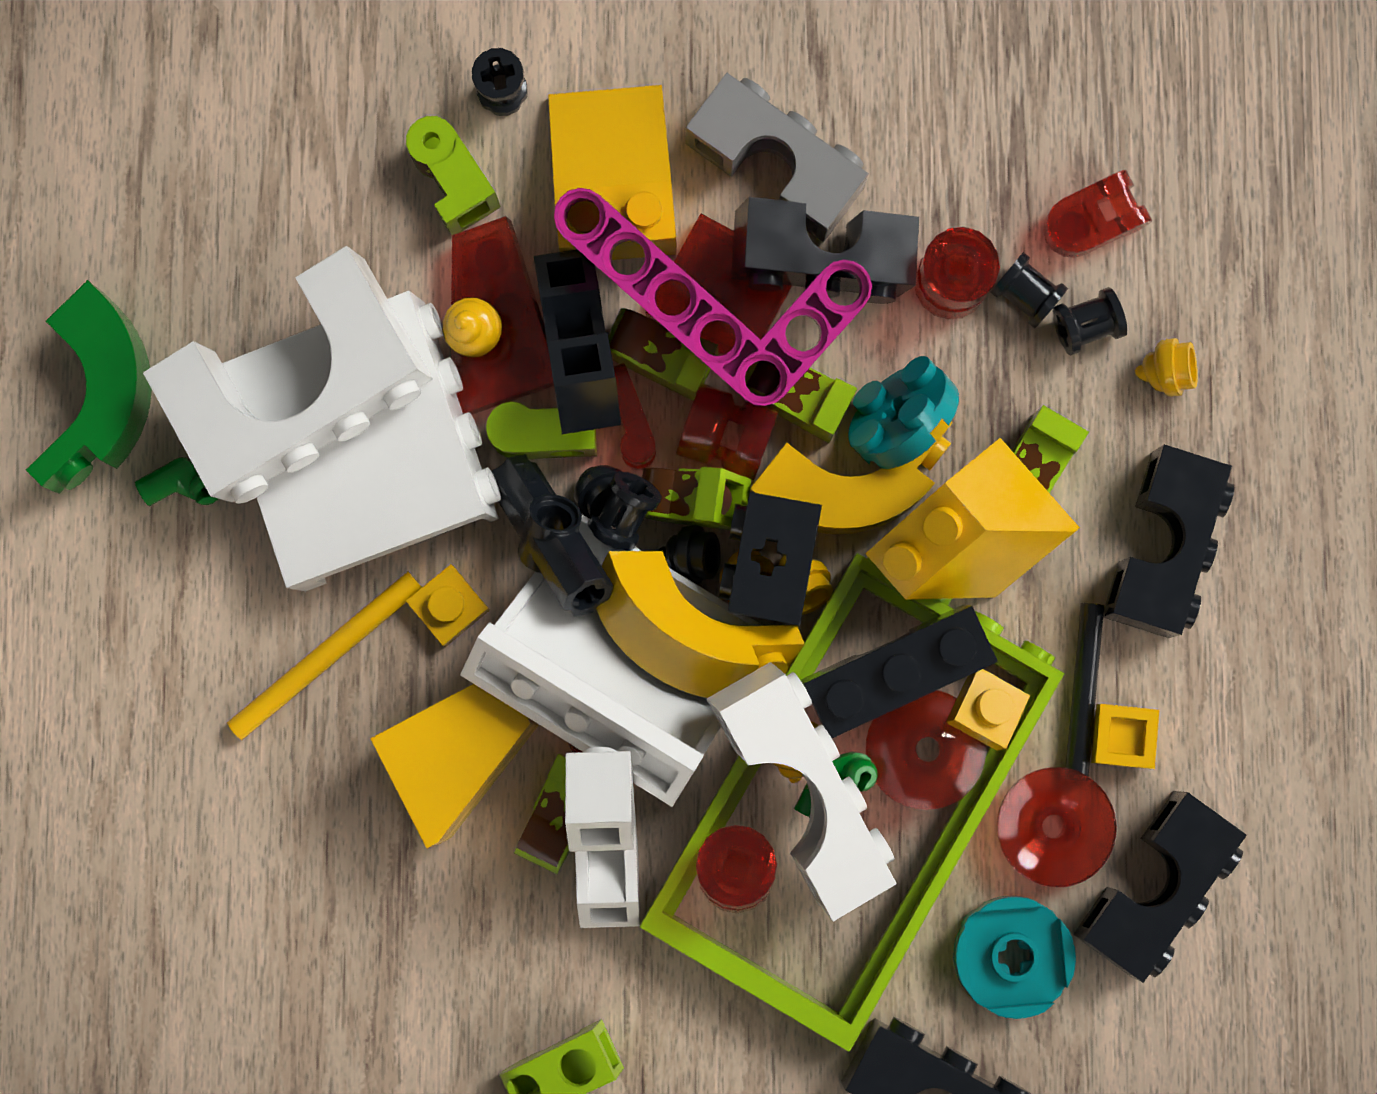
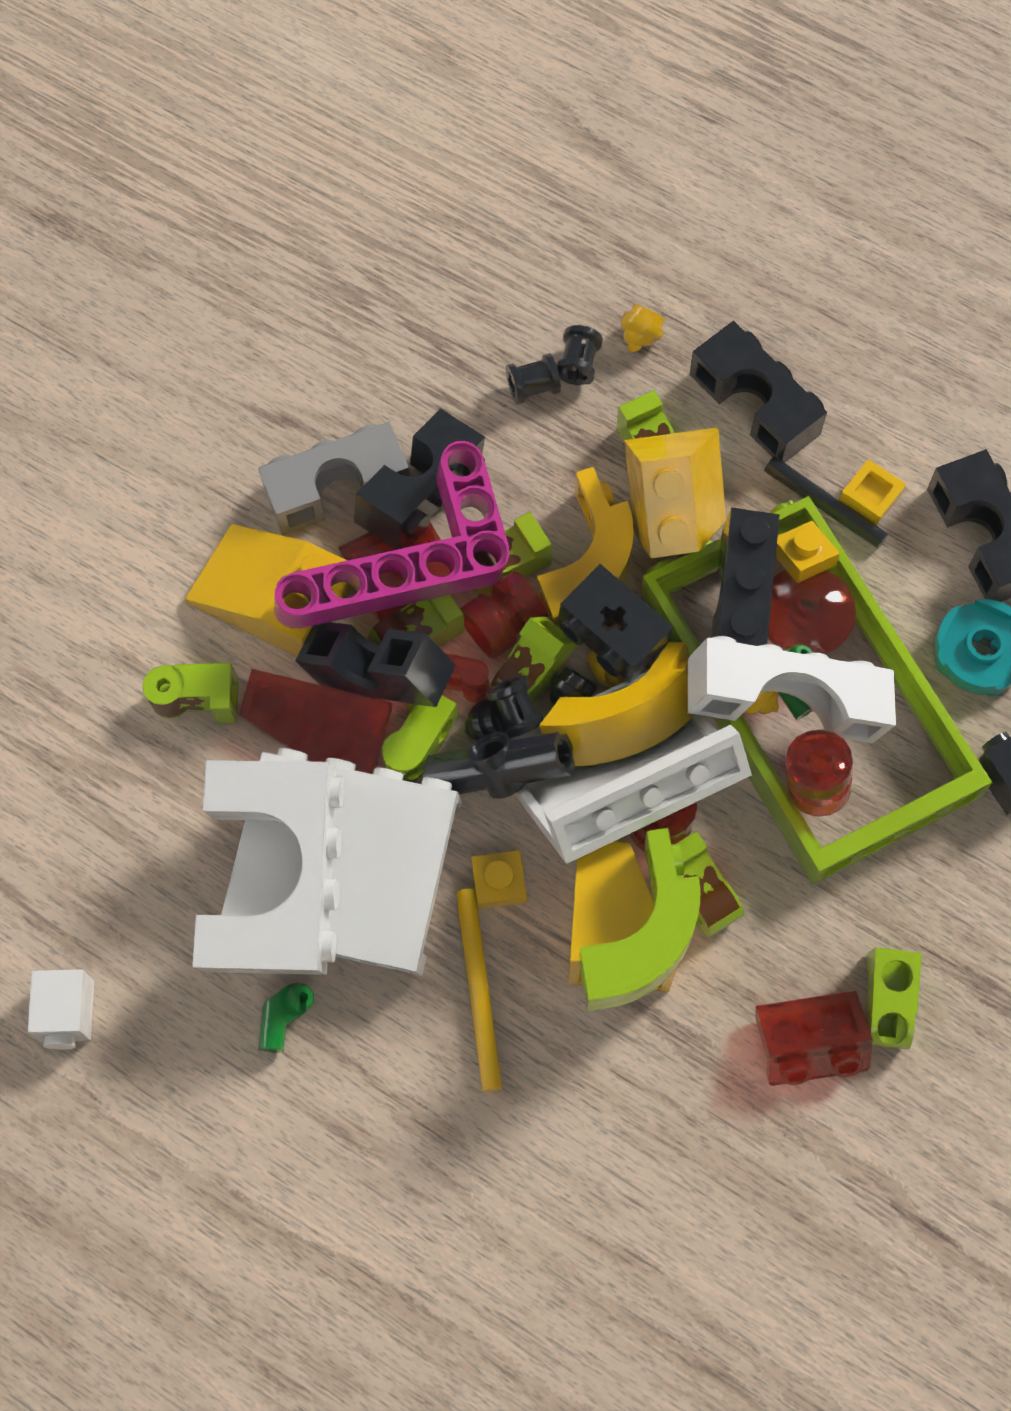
camera: 55 degrees left, 15 degrees down
(54, 266) = (61, 1007): none -> white brick
(115, 394) = (153, 1004): green arch -> none
(399, 813) = (642, 962): none -> lime arch
(471, 327) = (314, 734): yellow plate -> none
(474, 1016) = (814, 1038): none -> clear red bracket
(483, 79) = (159, 631): black bush -> none
(604, 836) = (725, 816): white arch -> none
(901, 412) = (560, 473): teal plate -> none
(956, 272) = (494, 409): clear red wheel -> none
(1078, 225) = (511, 326): clear red plate -> none
(1086, 831) = (915, 549): clear red dish -> none

